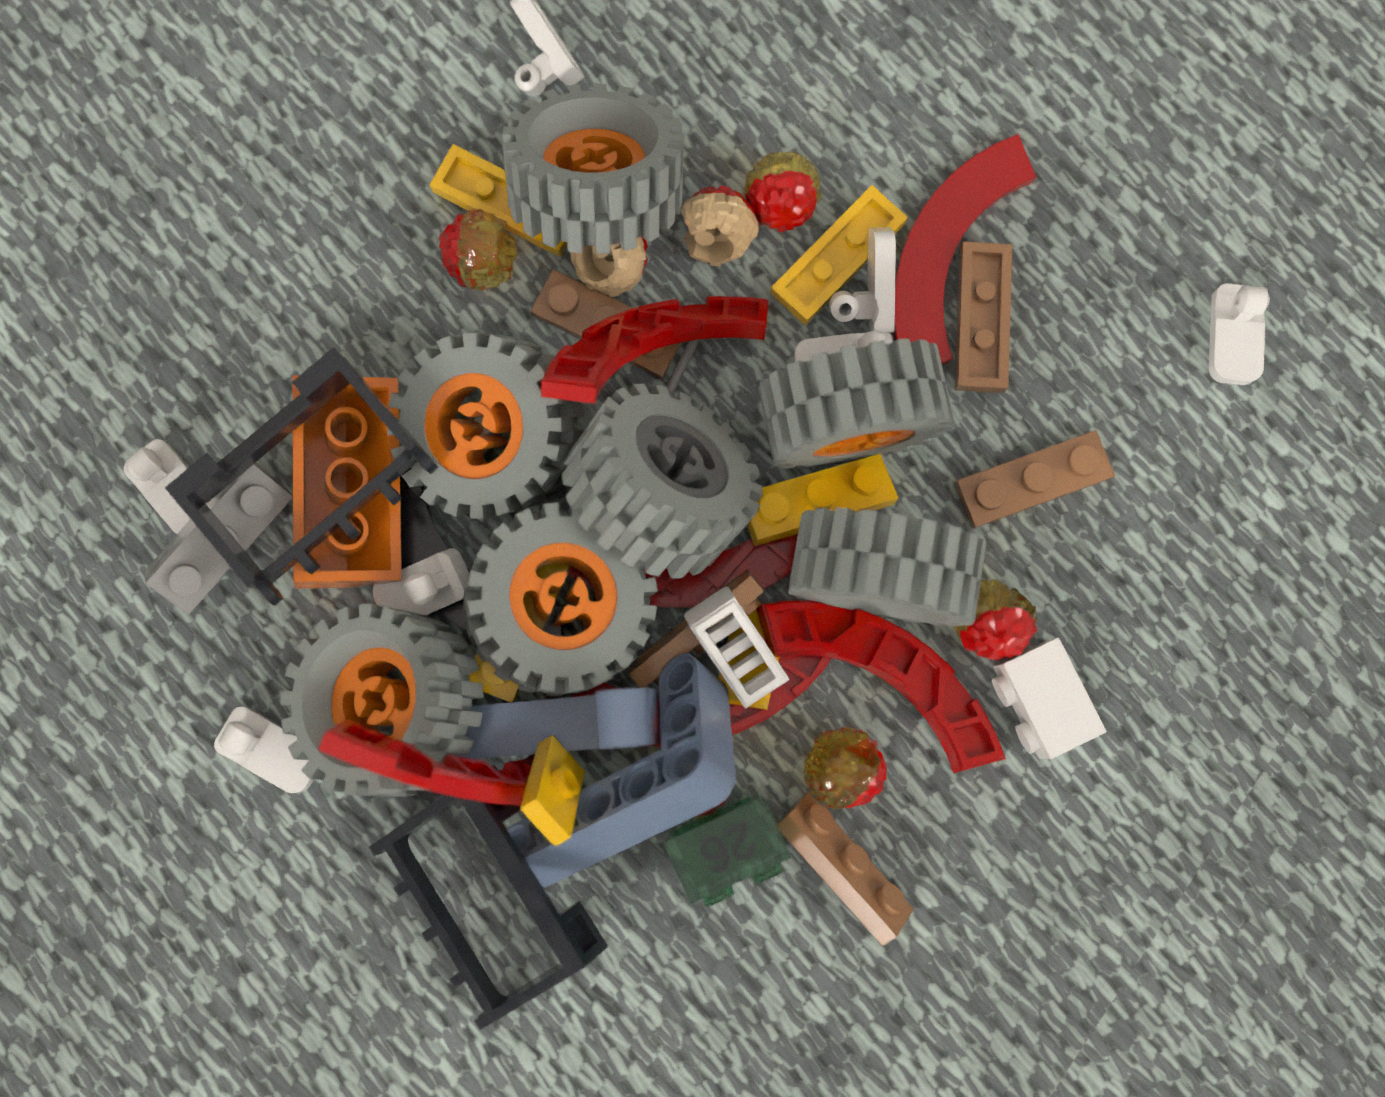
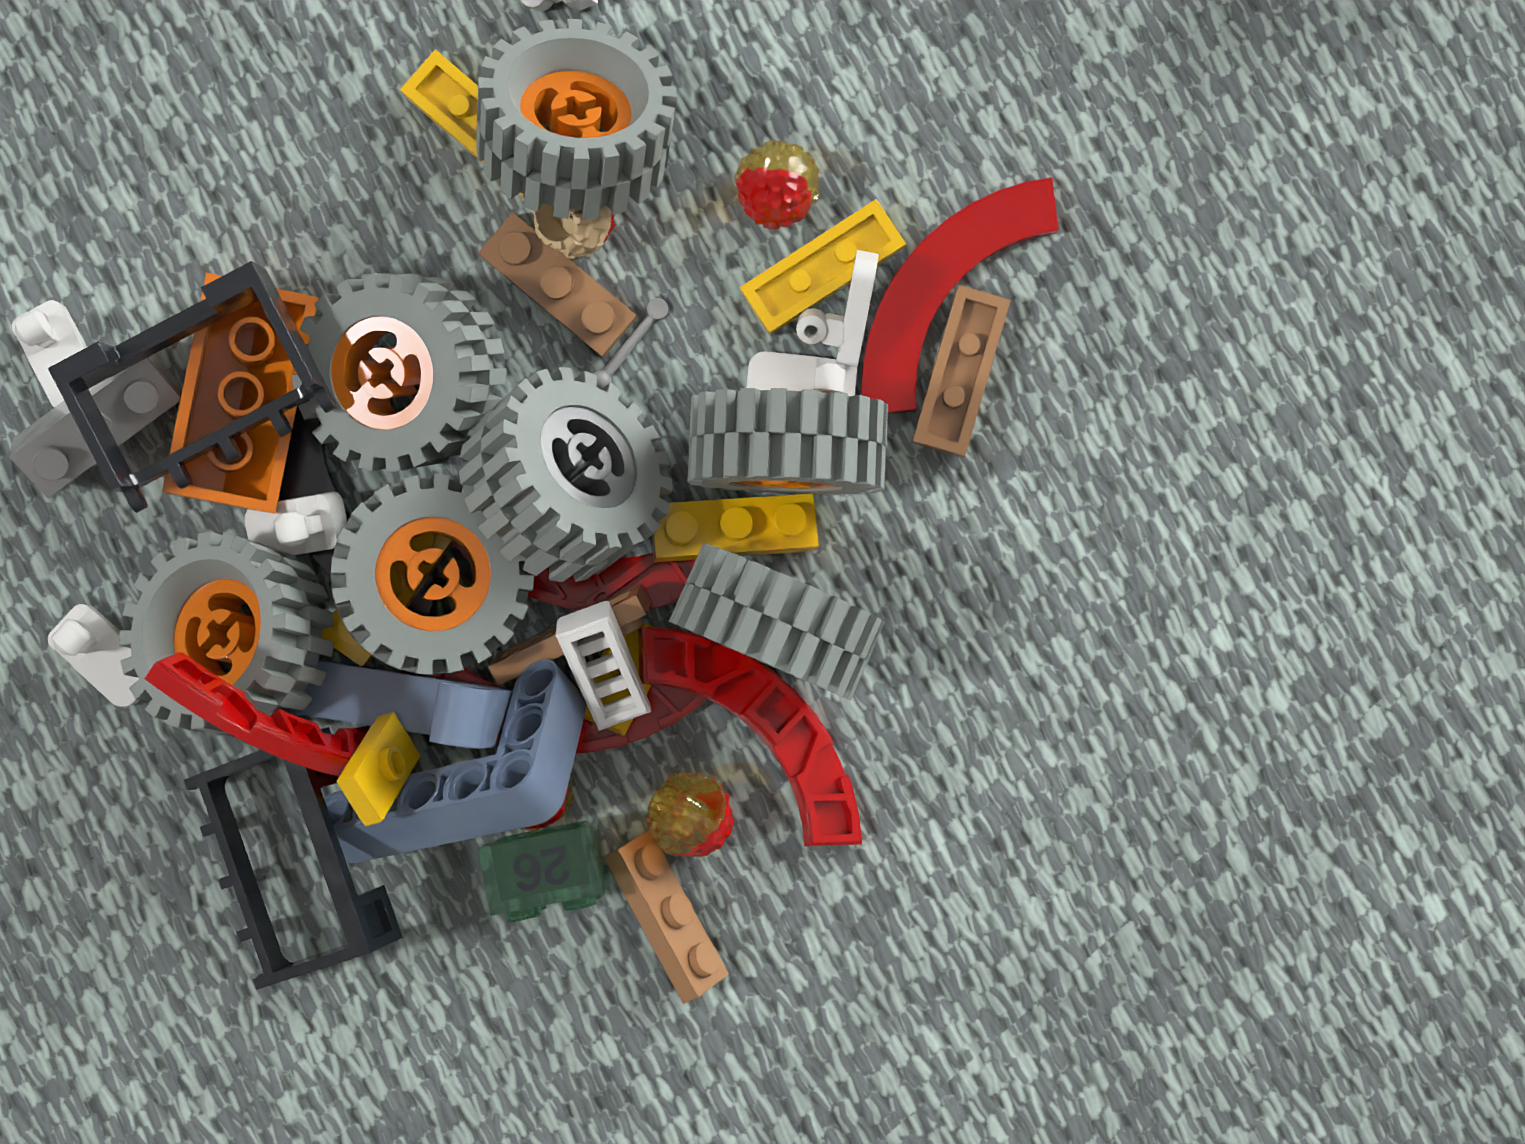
camera: 15 degrees right, 5 degrees up
(478, 250) = (435, 175): clear yellow piece -> none
(583, 368) = (559, 311): red tile -> none
(718, 225) = (699, 206): tan piece -> none
(1001, 624) = (887, 701): red piece -> none
(1034, 479) = (971, 558): medium nougat plate -> none
(1047, 700) = (919, 794): white brick -> none
(1237, 333) = (1231, 452): white piece -> none

